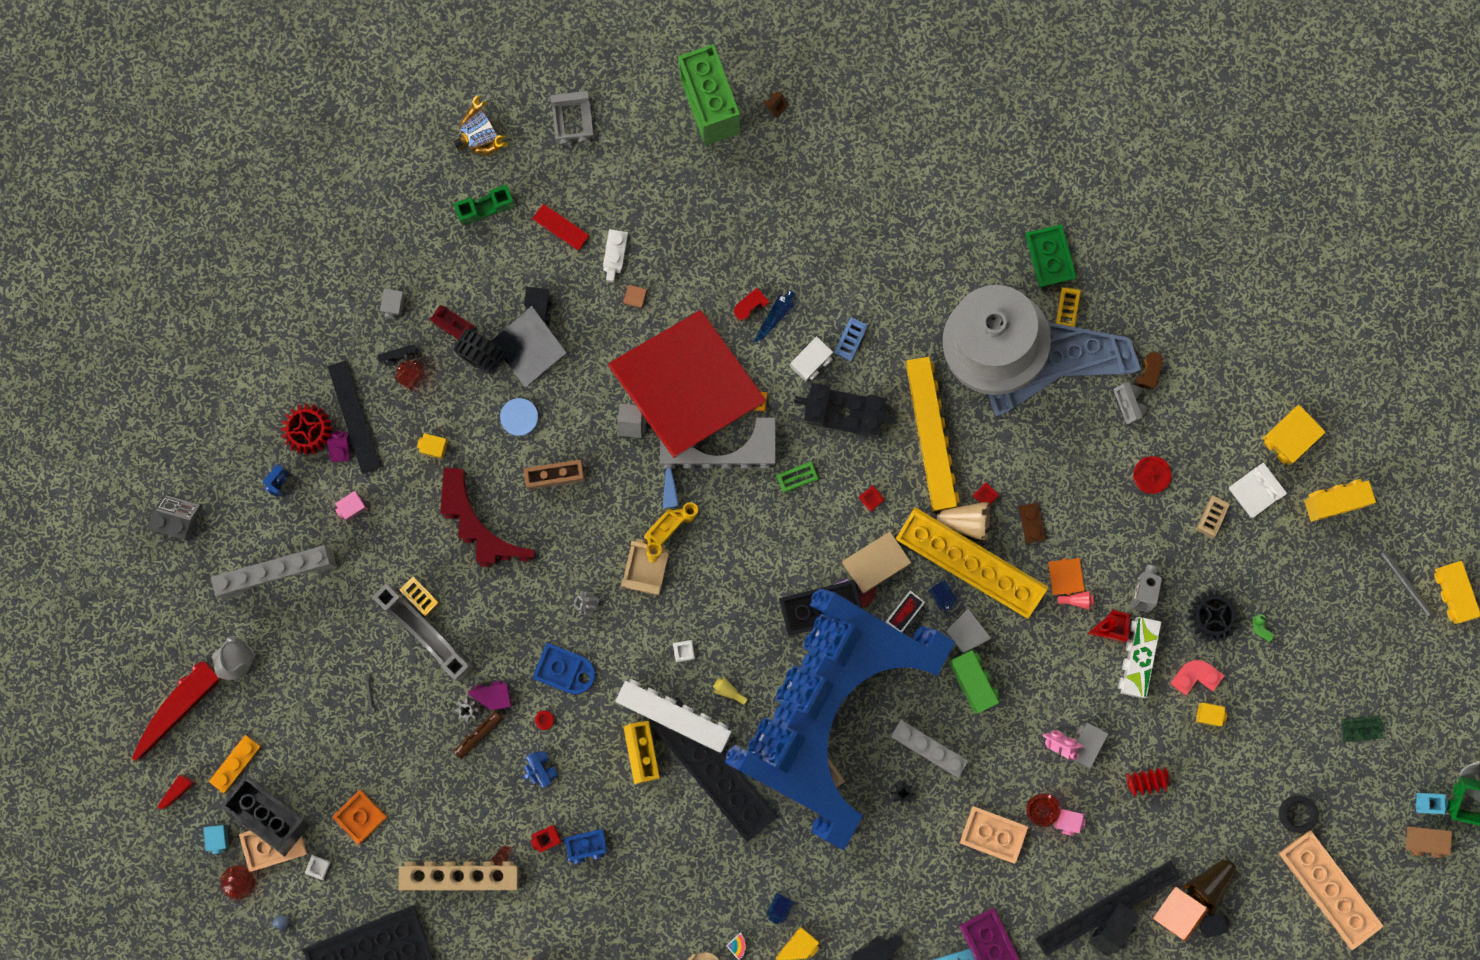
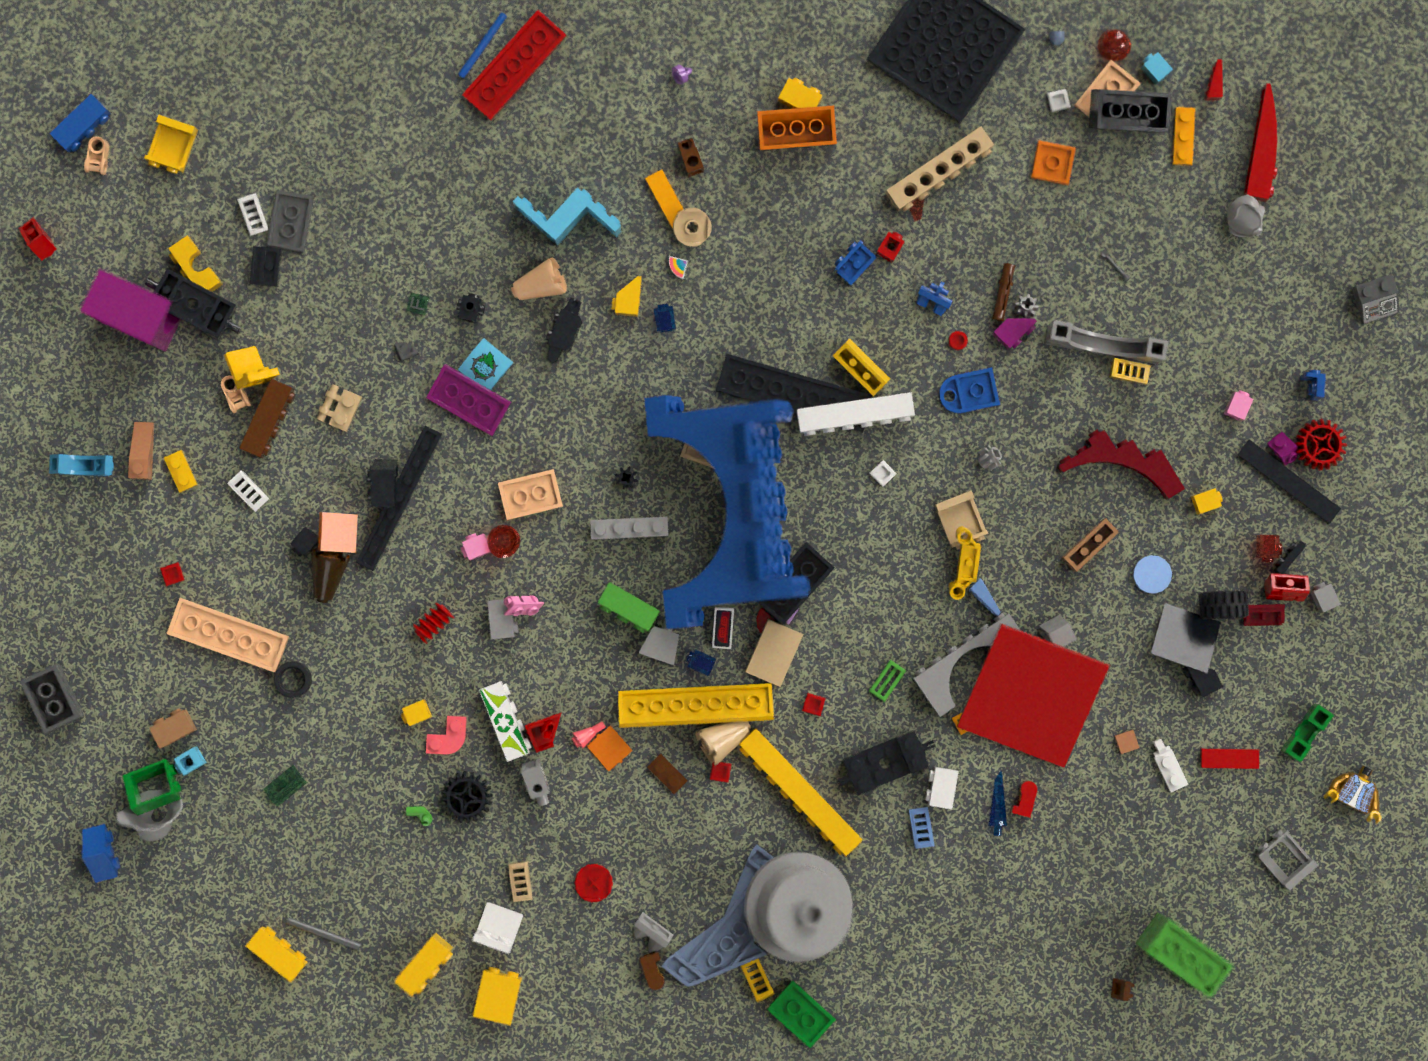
camera: 140 degrees right, 5 degrees up
(238, 581) = (1255, 319): light grey arch -> none
(417, 331) = (1286, 587): none -> red brick
(726, 689) = (828, 465): light yellow cone -> none

